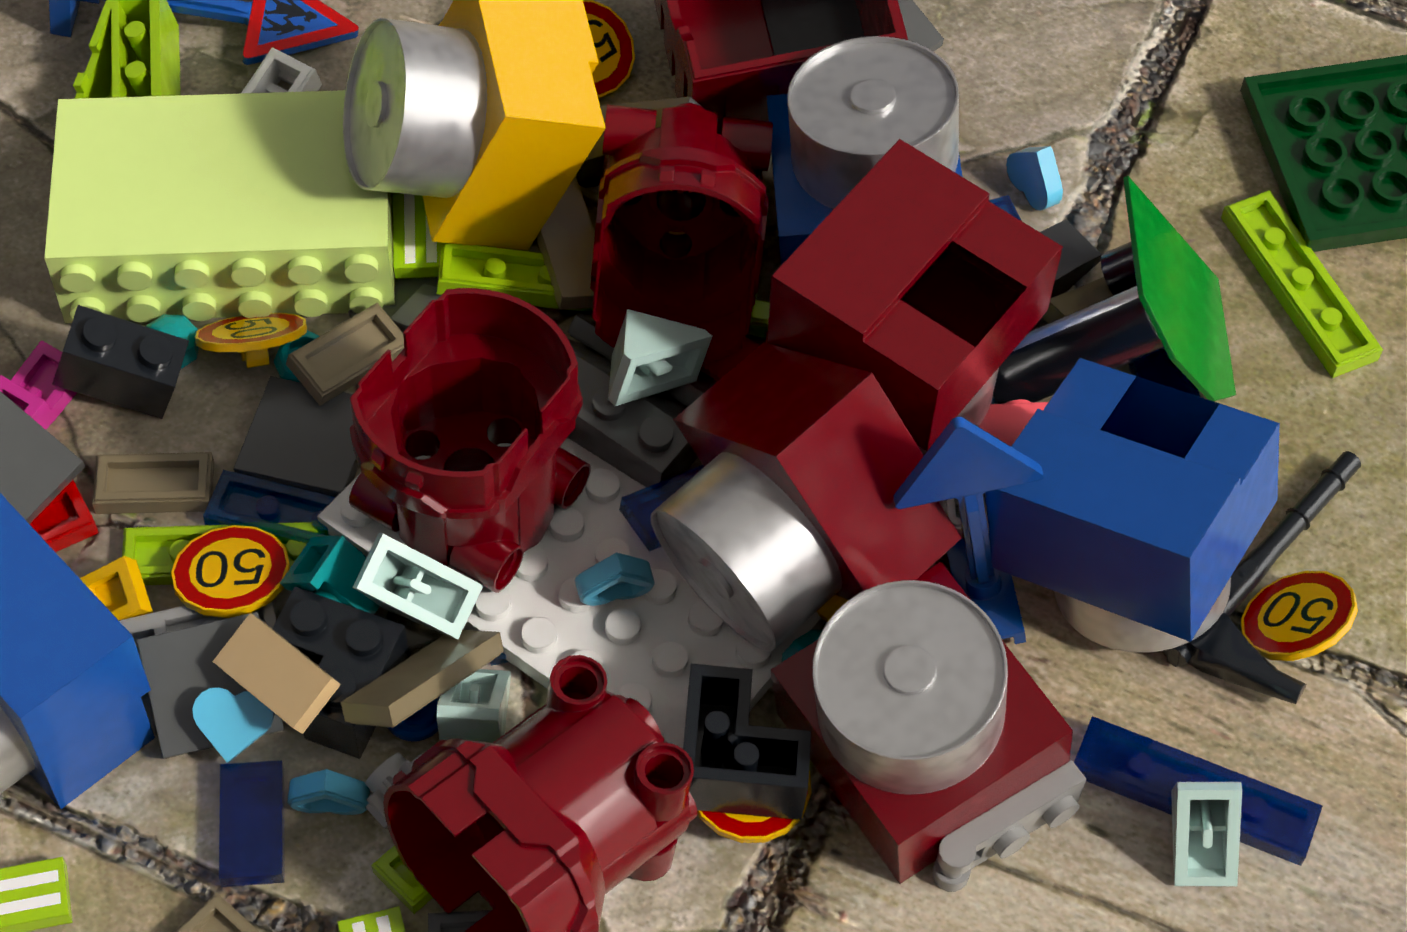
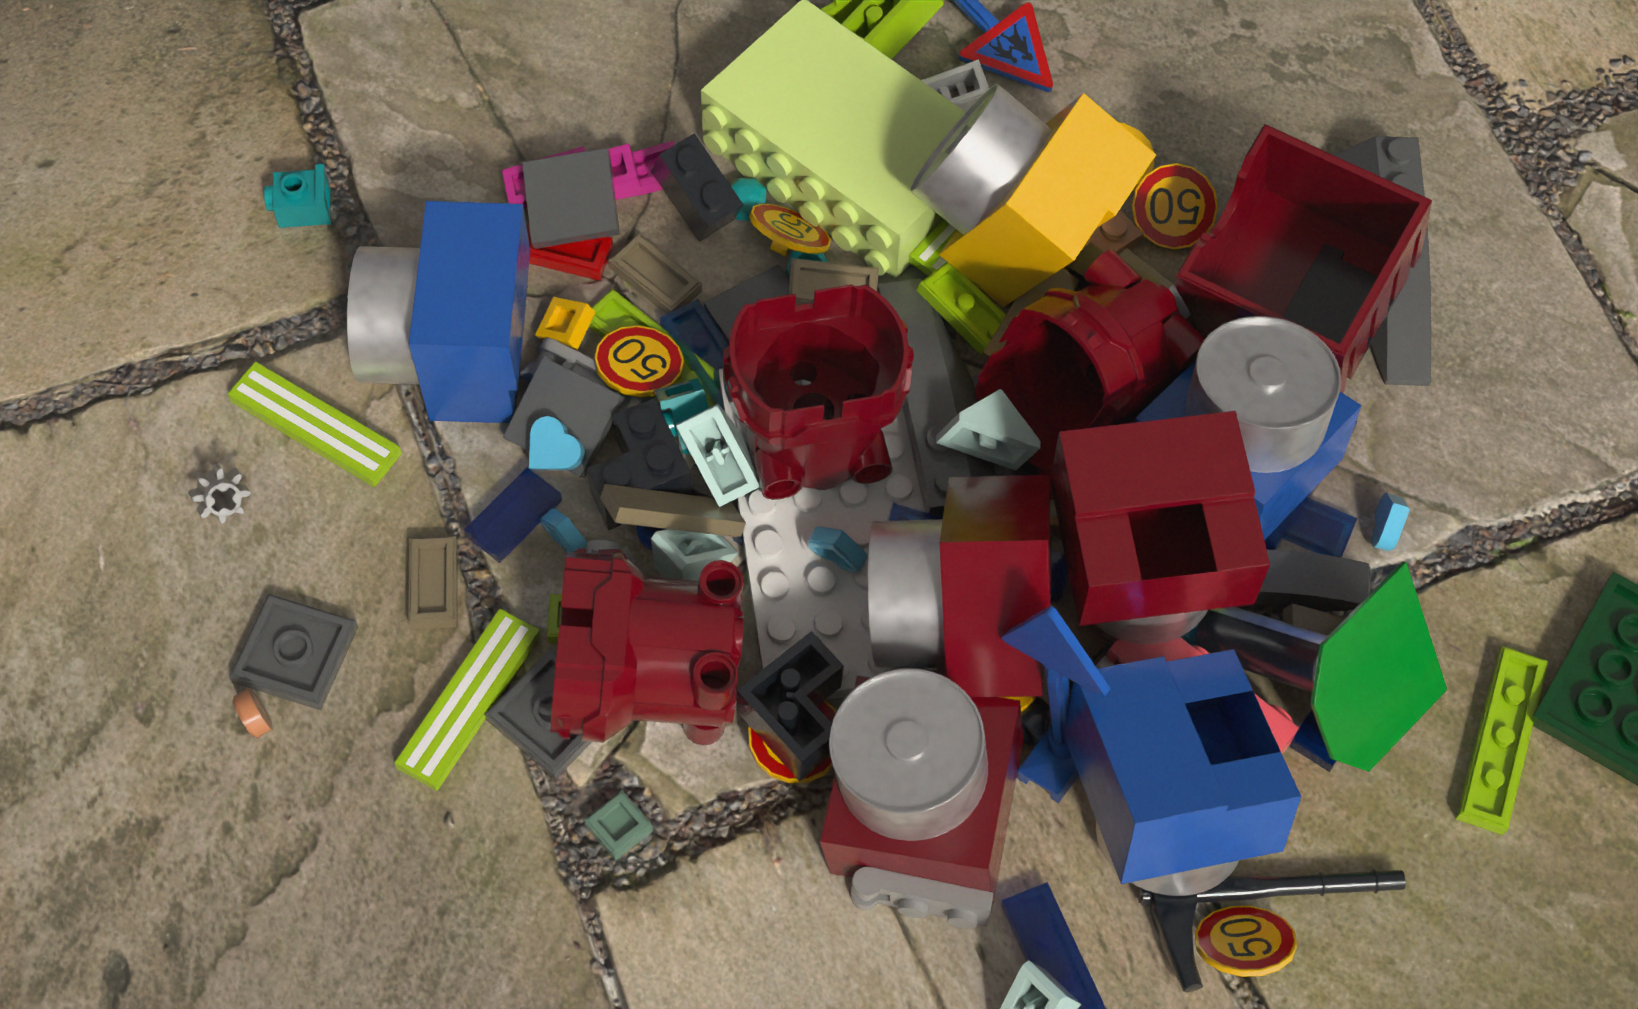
camera: 45 degrees right, 5 degrees up
(276, 673) = (592, 438): tan tile -> none

